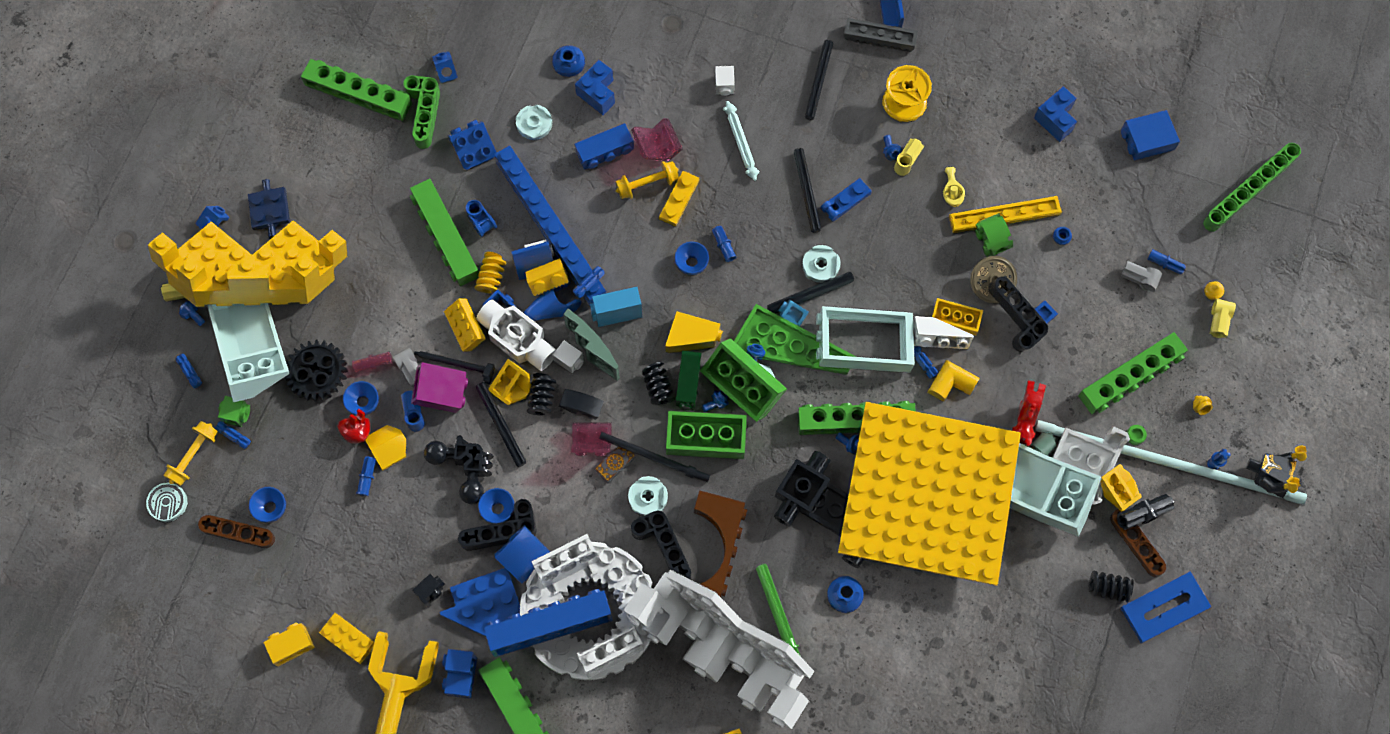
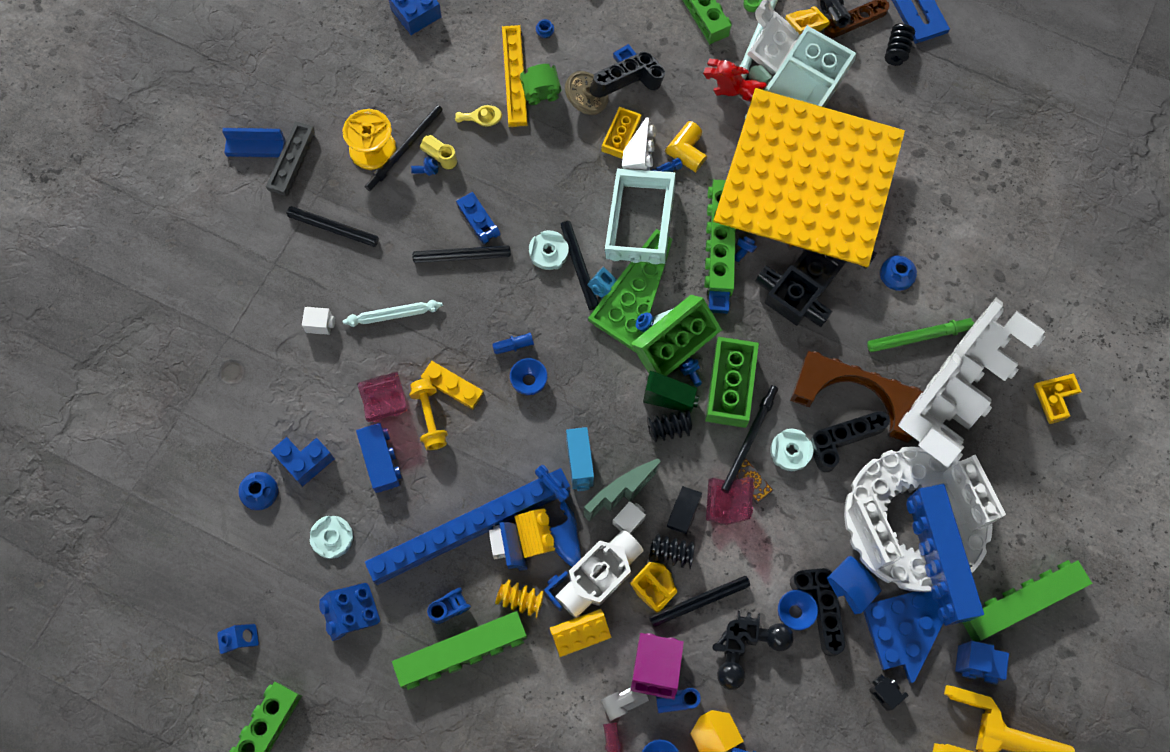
camera: 85 degrees left, 0 degrees up
(423, 112) = (298, 666): bright green beam -> none
(487, 371) = (636, 610): black piece -> none
(692, 333) = (613, 386): yellow slope -> none
(788, 421) = (719, 302): none -> blue plate
(878, 111) = (380, 173): none -> black bar

